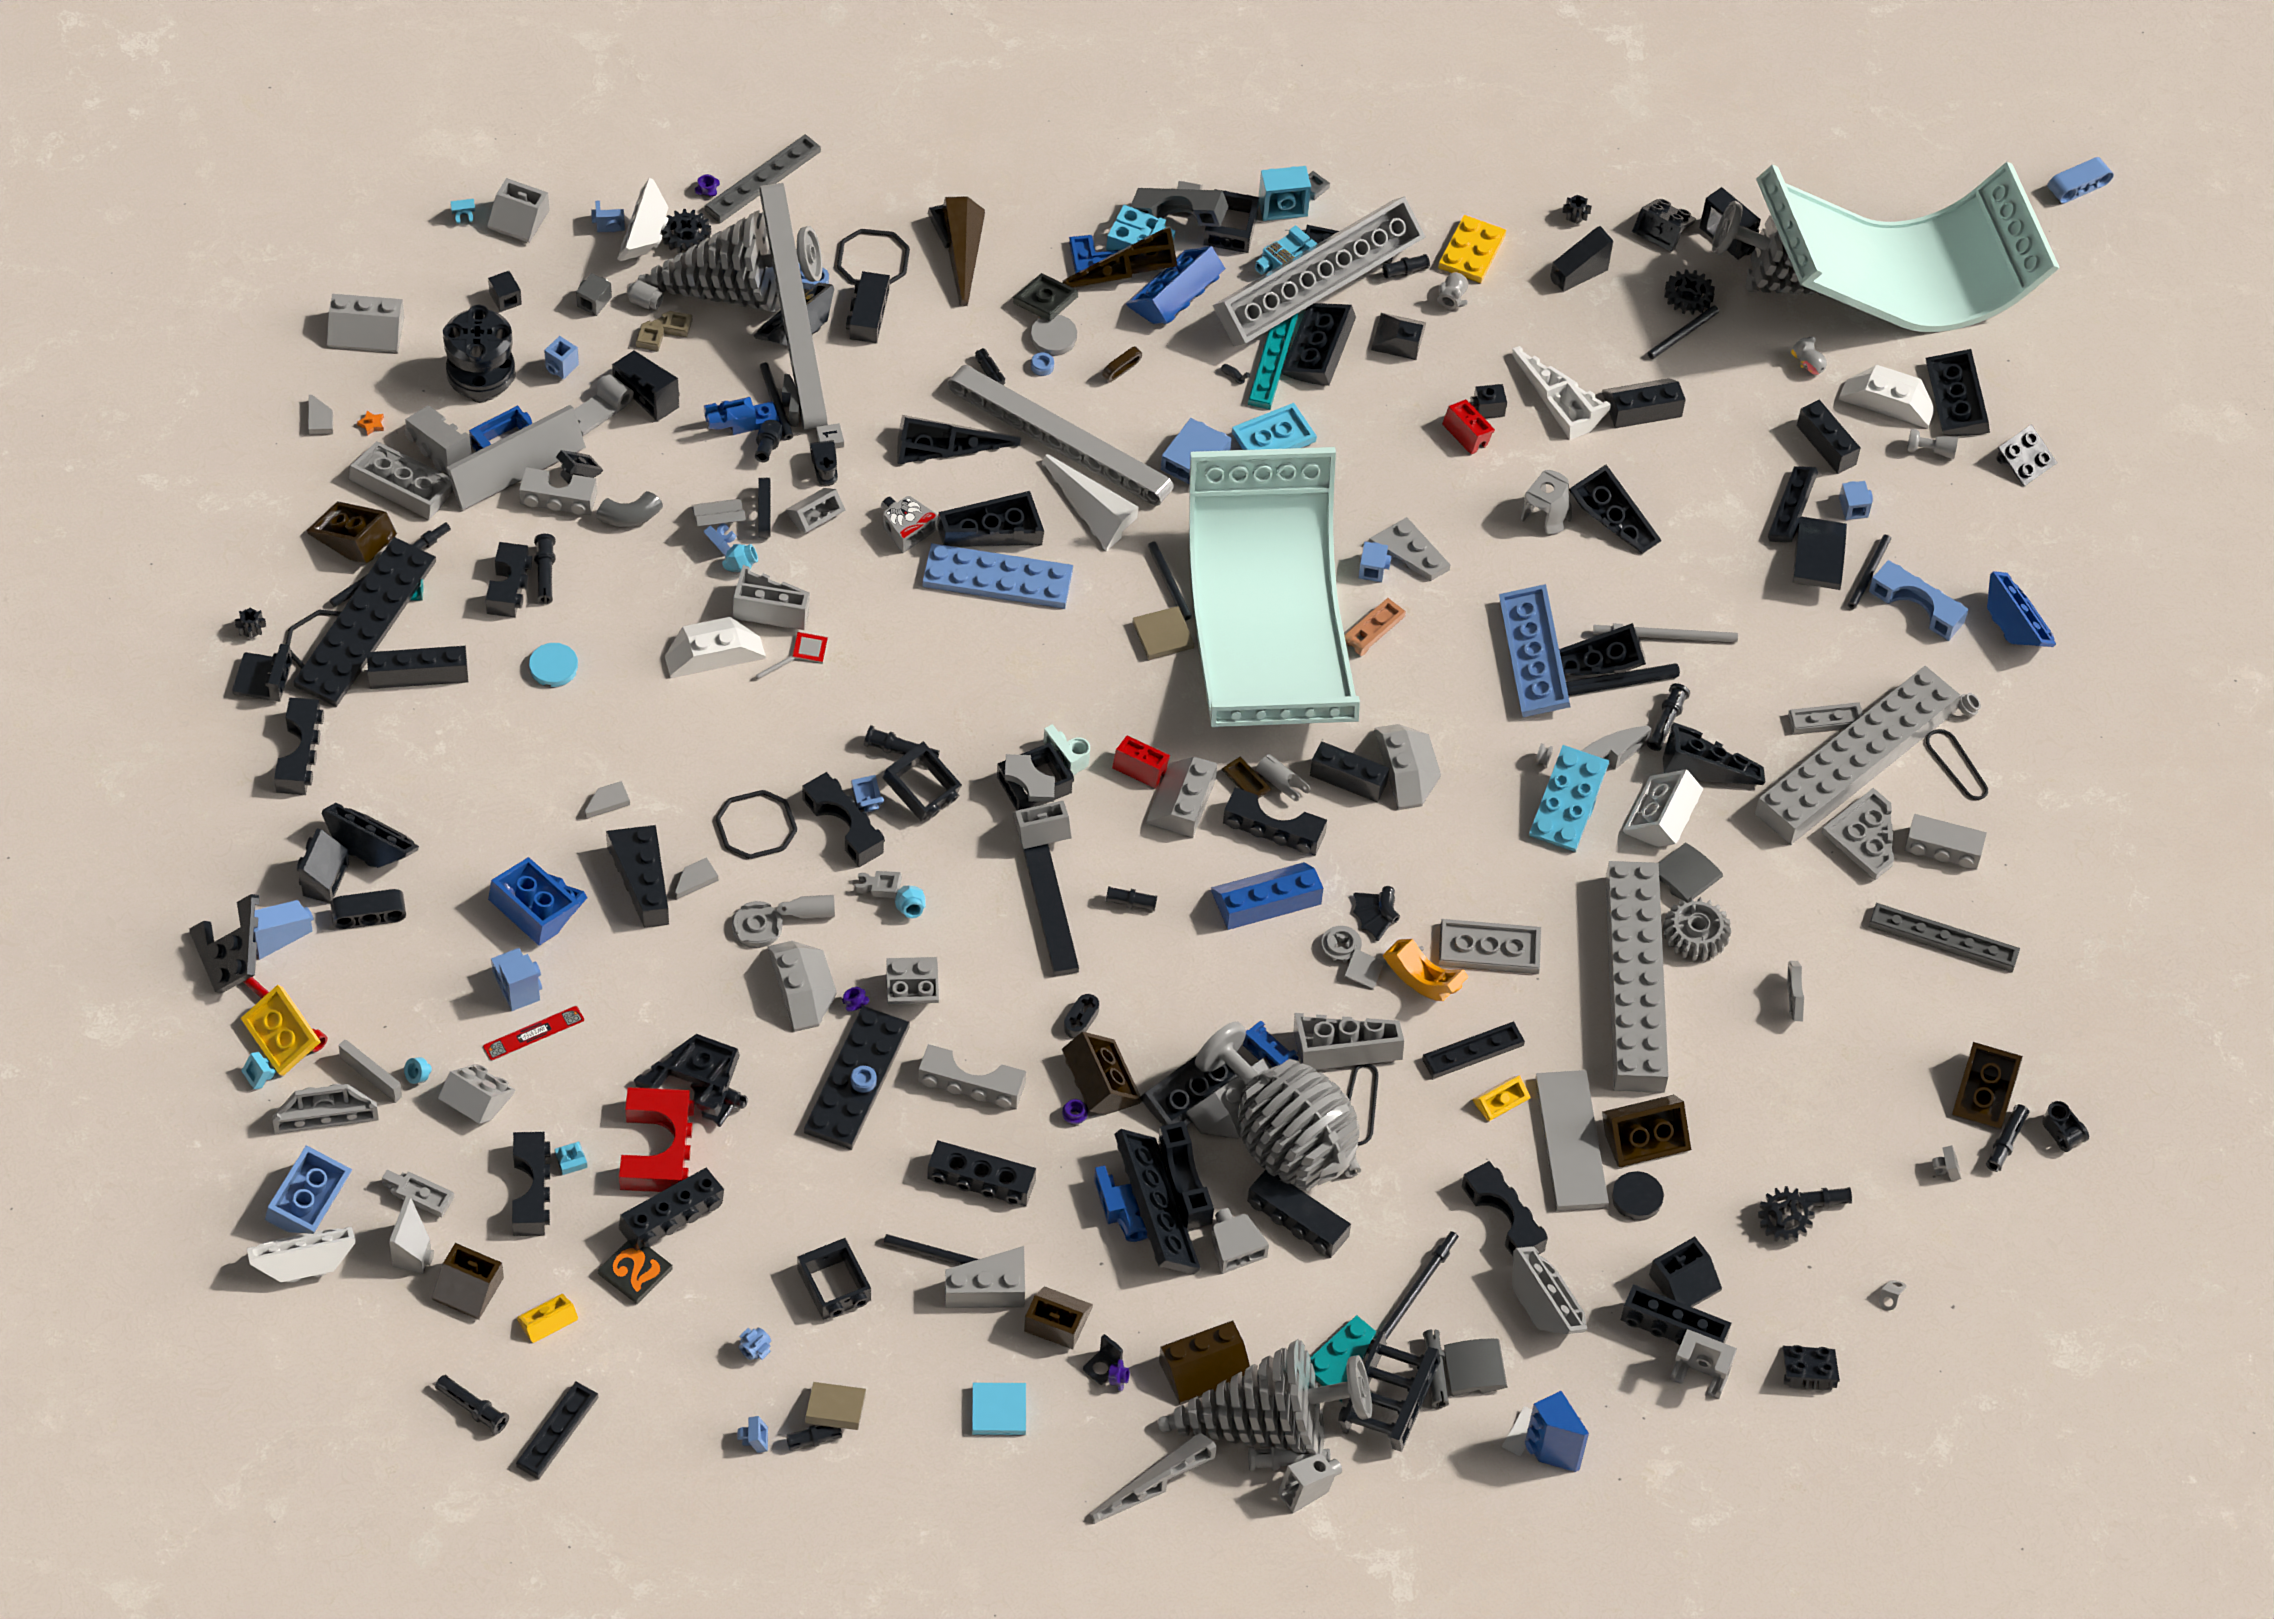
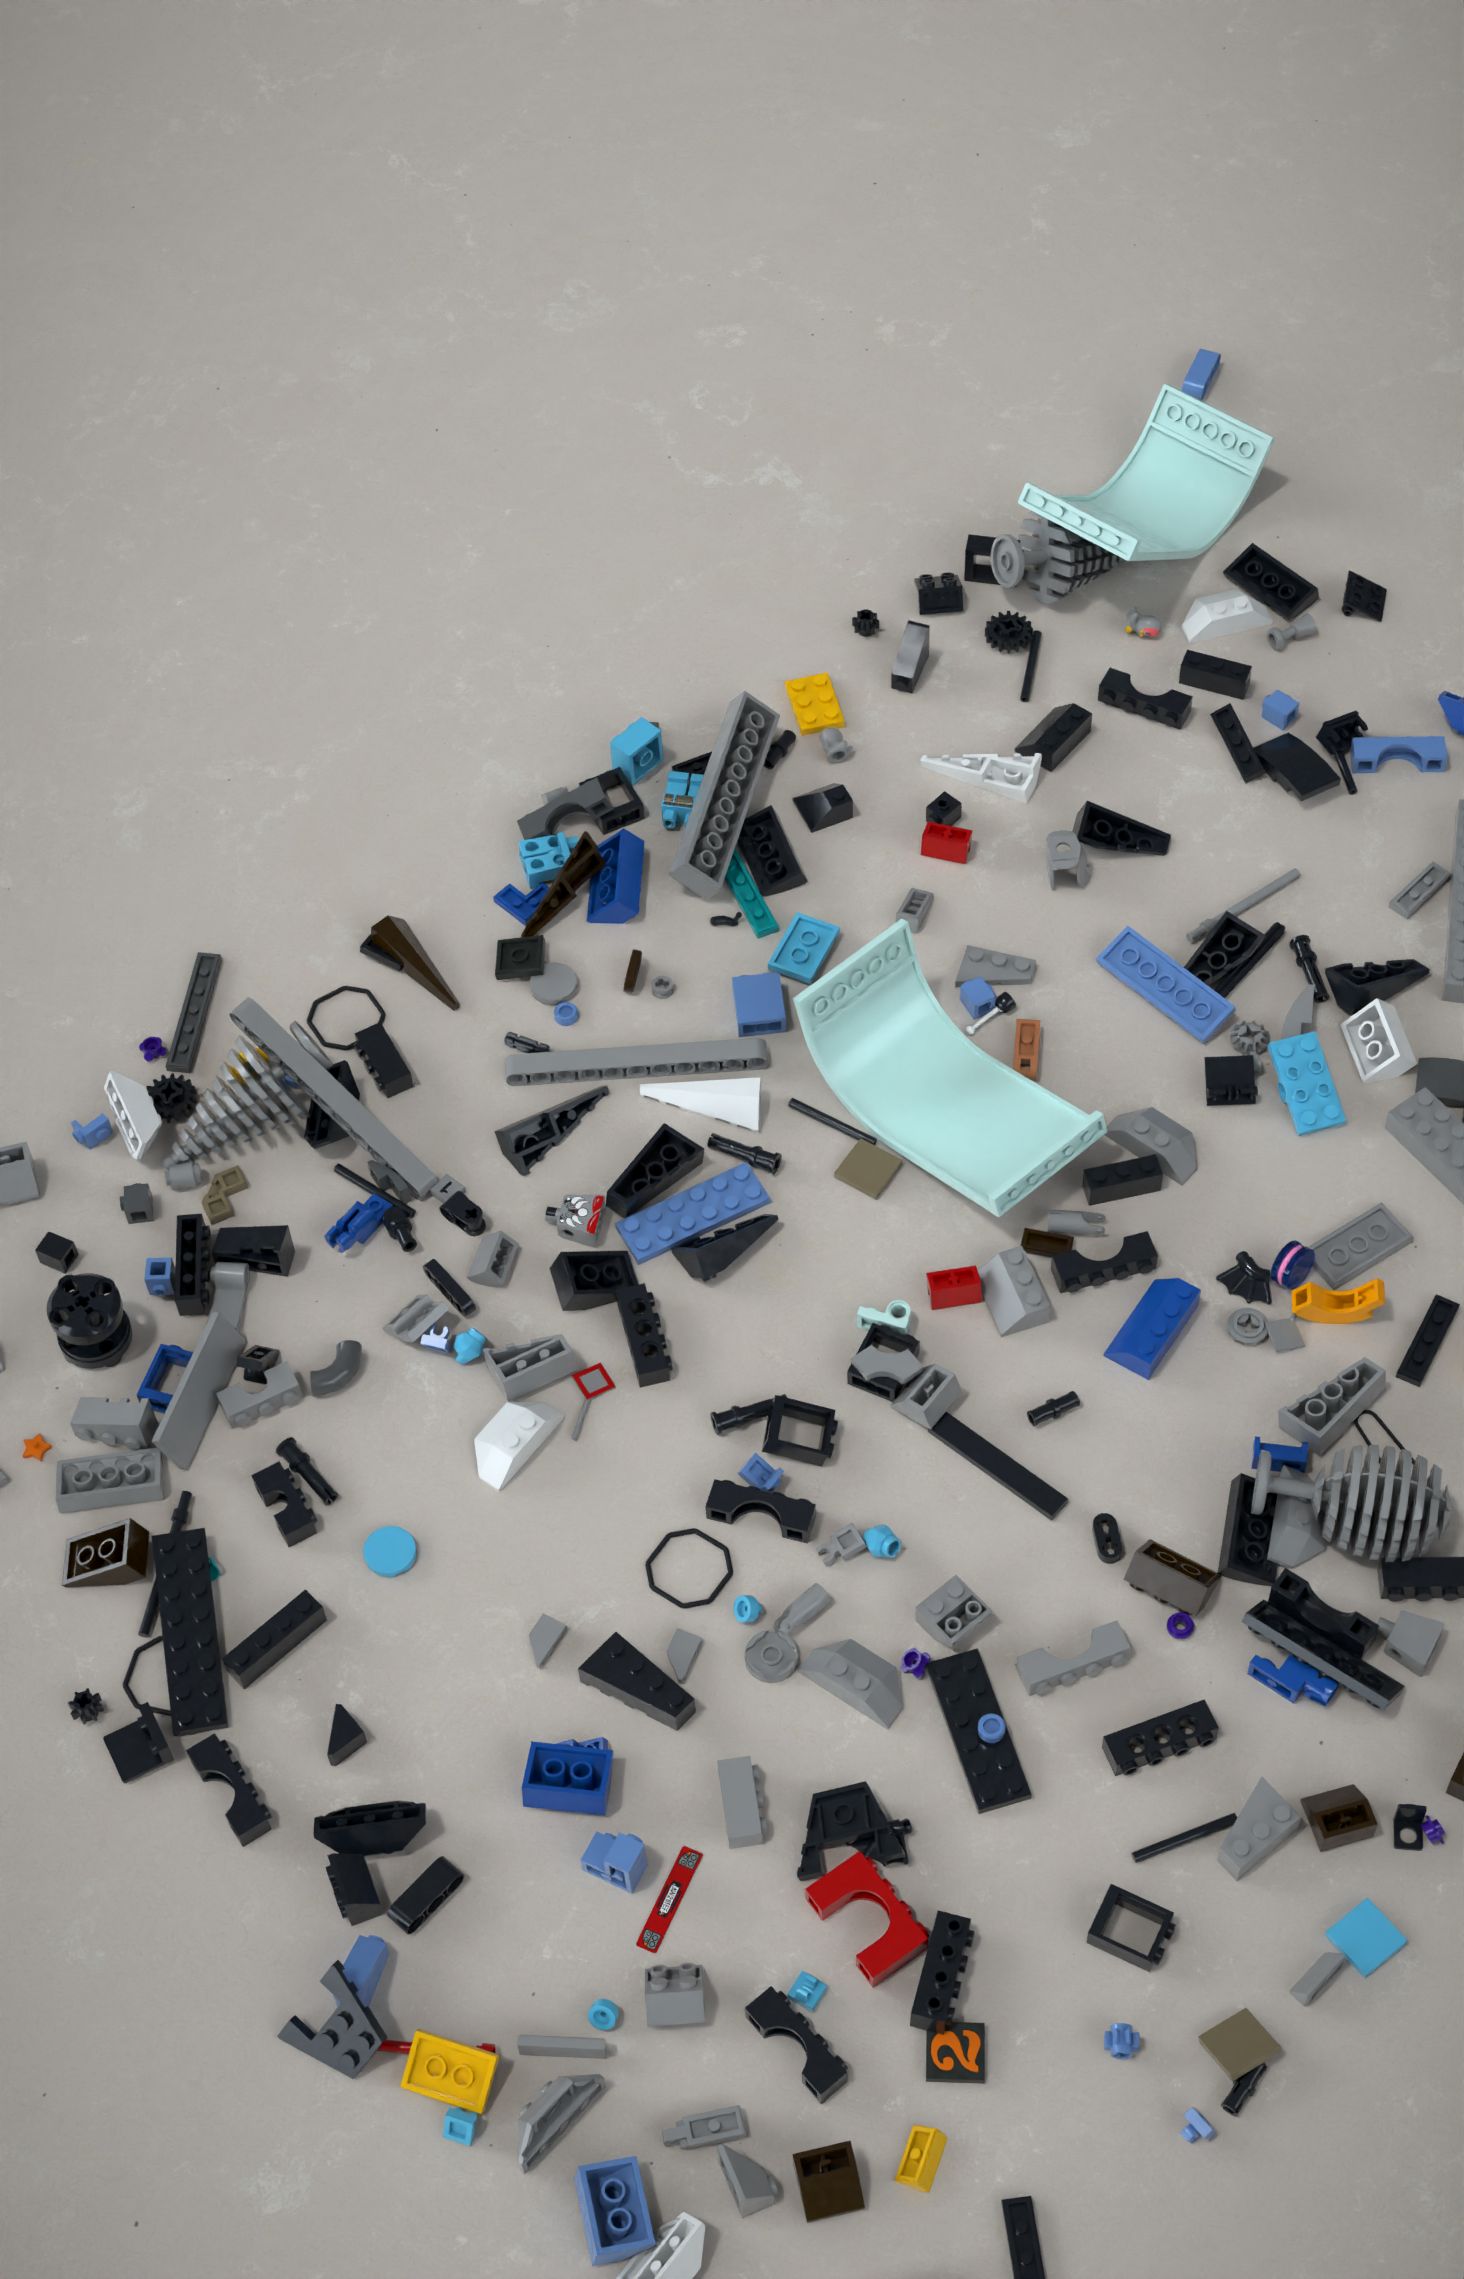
camera: 30 degrees left, 0 degrees up
(406, 766) = (345, 1736): none -> black slope
(590, 363) = (190, 1267): none -> black brick
(640, 1003) = (741, 1802): none -> light grey brick
(769, 878) = (746, 1608): none -> medium azure tile
(874, 637) = (648, 1369): none -> black brick
(877, 572) = (591, 1277): none -> black slope
(937, 1409) = (1317, 1977): none -> light grey slope
(978, 613) = (714, 1254): none -> black wedge
(1083, 564) = (754, 1155): none -> black pin
(1135, 398) = (662, 993): none -> light grey bush
(1381, 471) = (914, 910): none -> light grey slope
(1389, 580) = (1003, 1004): none -> hinge
(1417, 920) = (1292, 1265): none -> clear blue head
(1510, 756) = (1230, 1080): none -> black hinge
(1554, 732) = (1243, 1043): none -> light grey gear
(1762, 439) = (1167, 708): none -> black arch
(1880, 547) = (1338, 733): none -> black hinge

